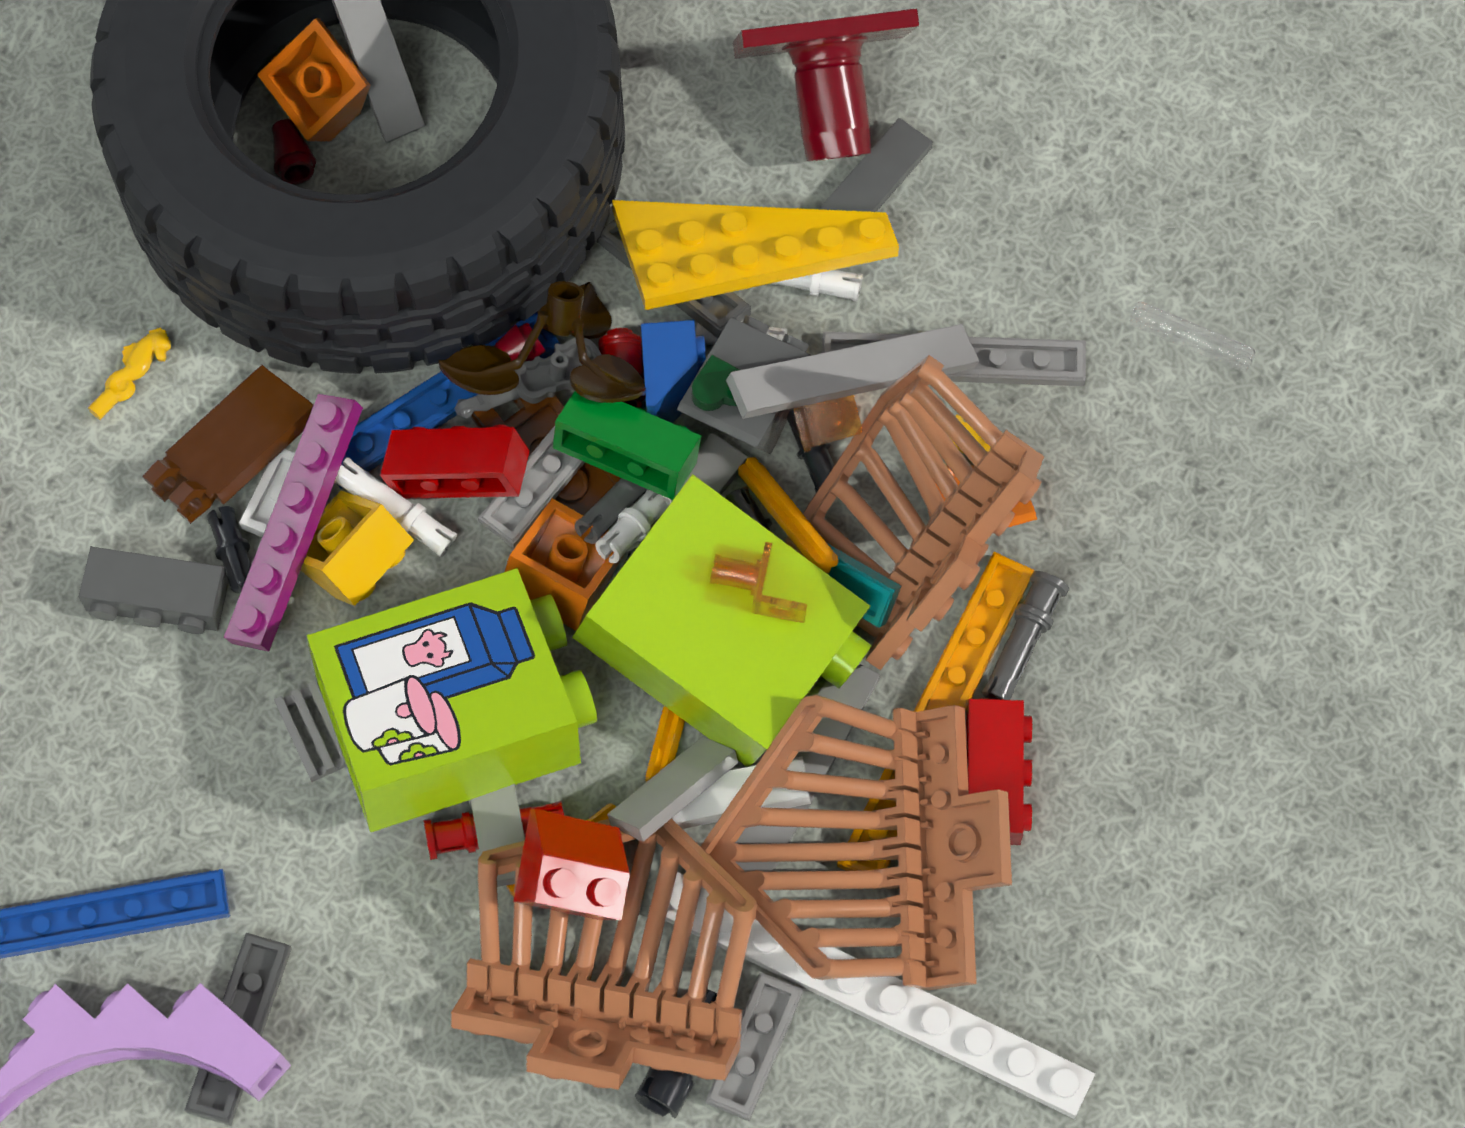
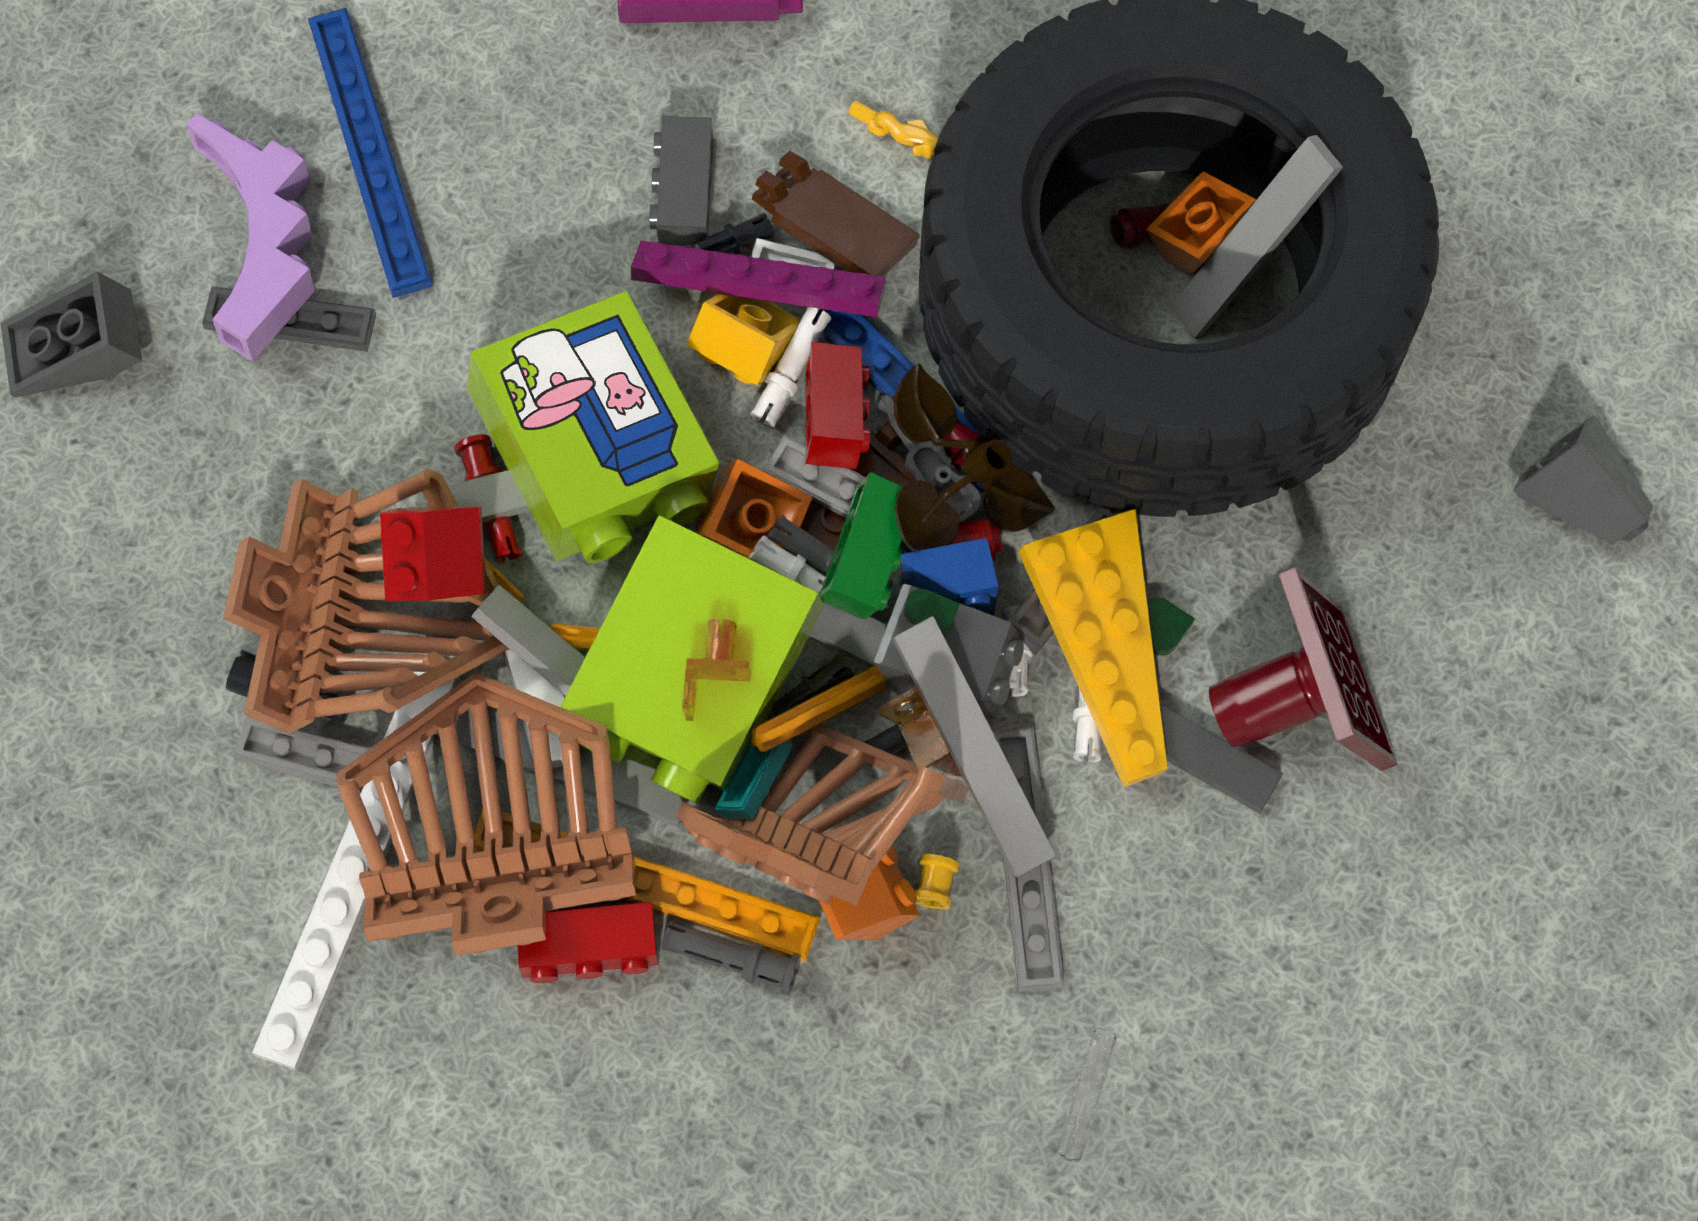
camera: 80 degrees right, 0 degrees up
(732, 191) = (1167, 625): none -> dark green tile

